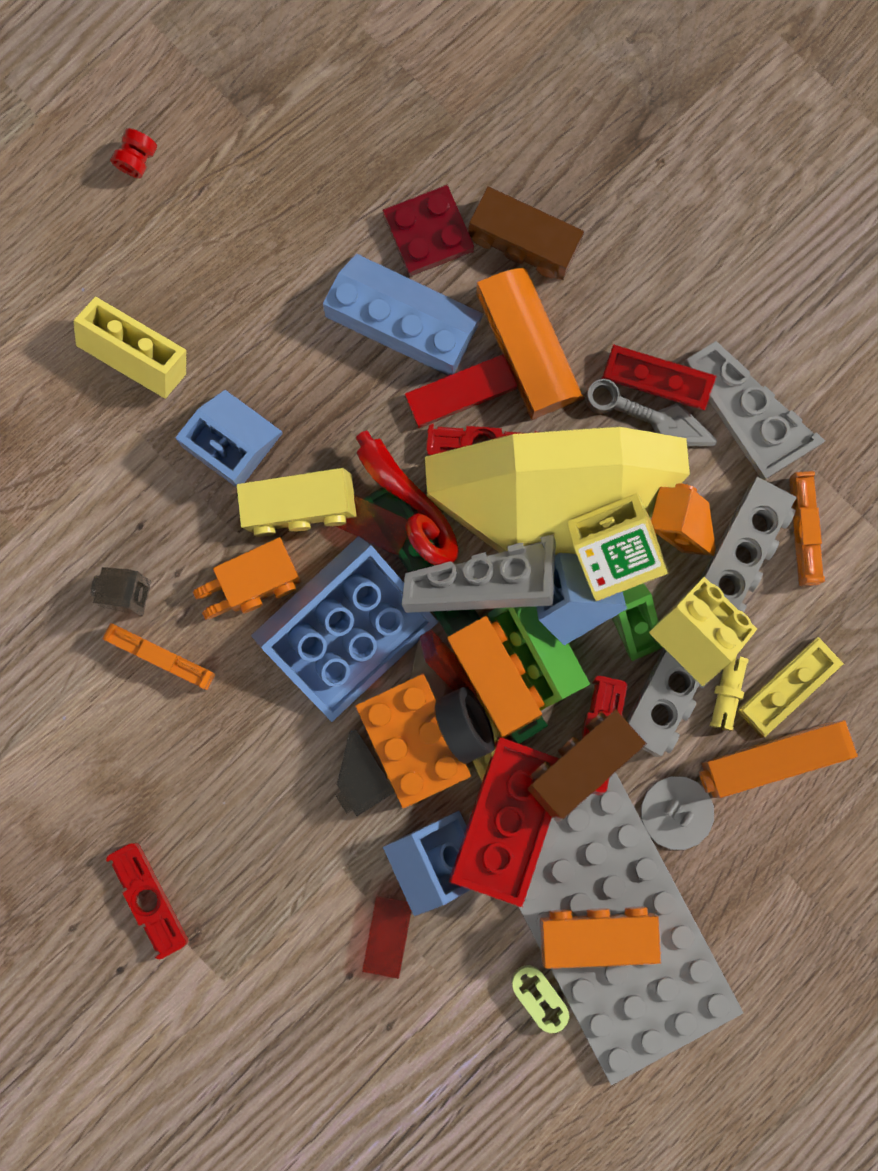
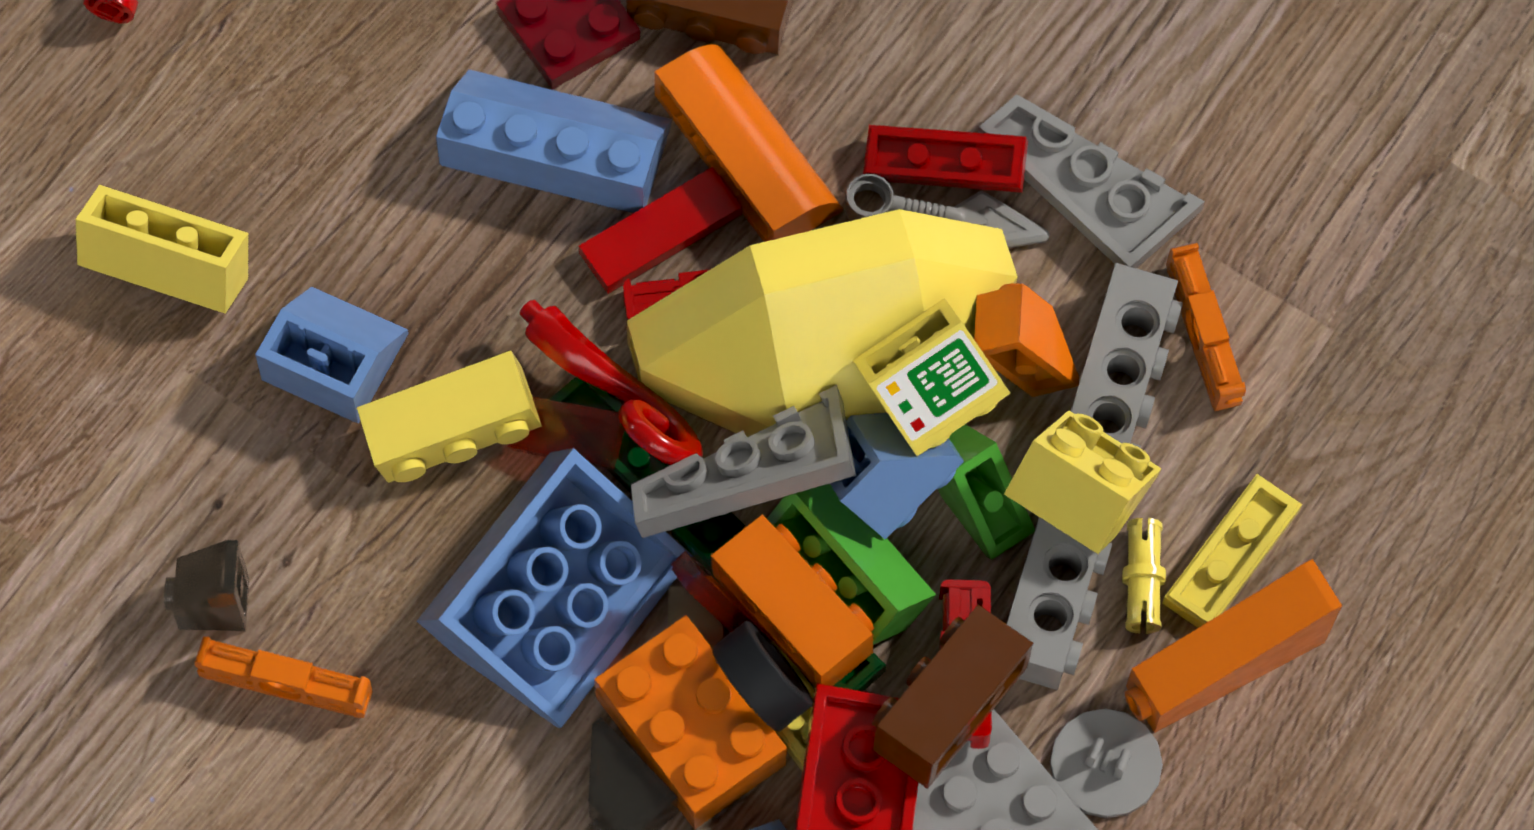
camera: 10 degrees left, 15 degrees down
(251, 579) = (401, 542): orange hinge -> none

